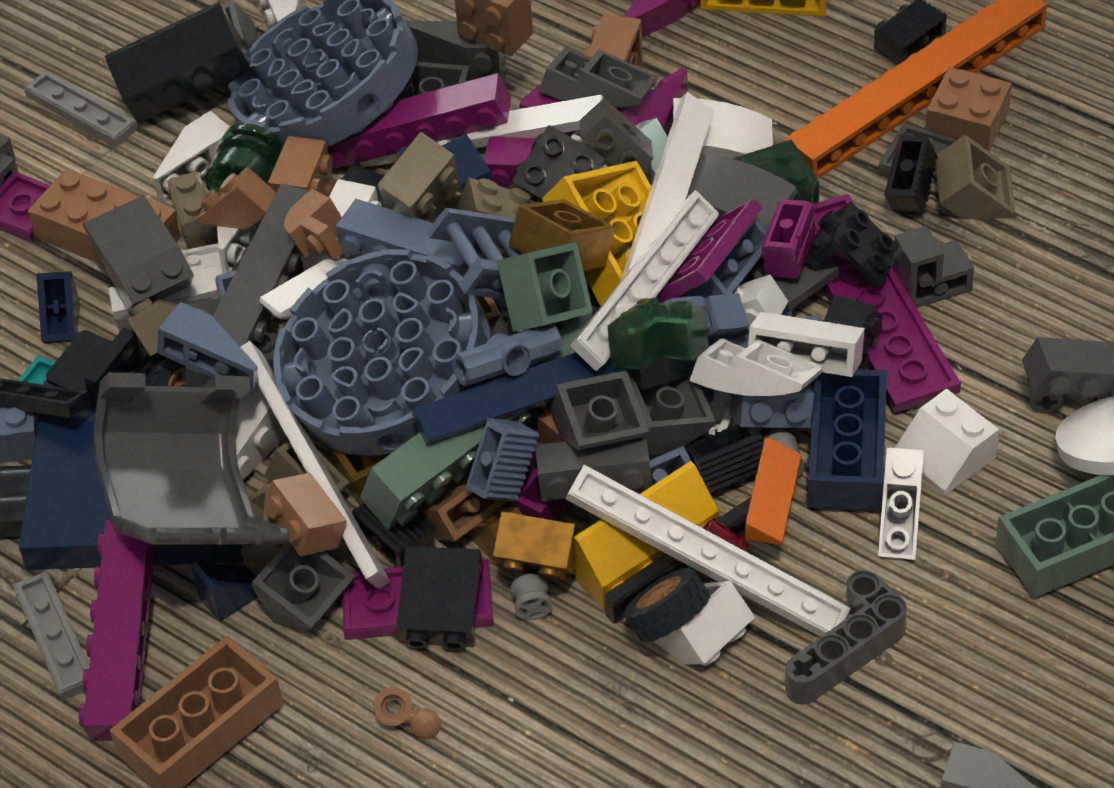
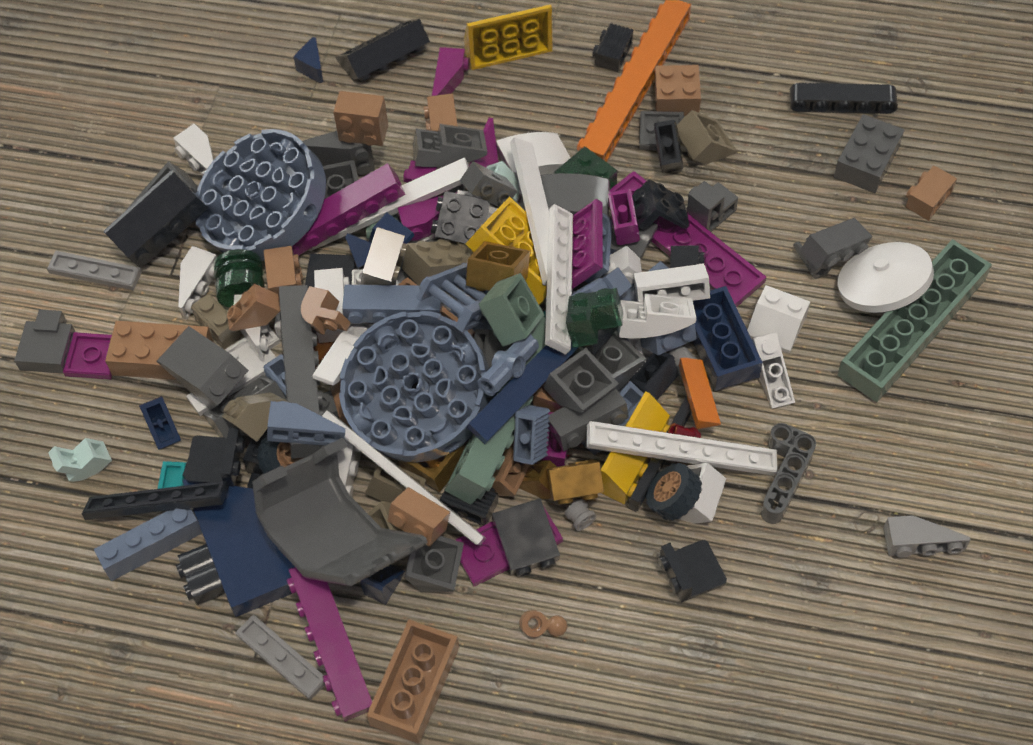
camera: 25 degrees left, 10 degrees up
(643, 716) = (691, 569): none -> black bracket

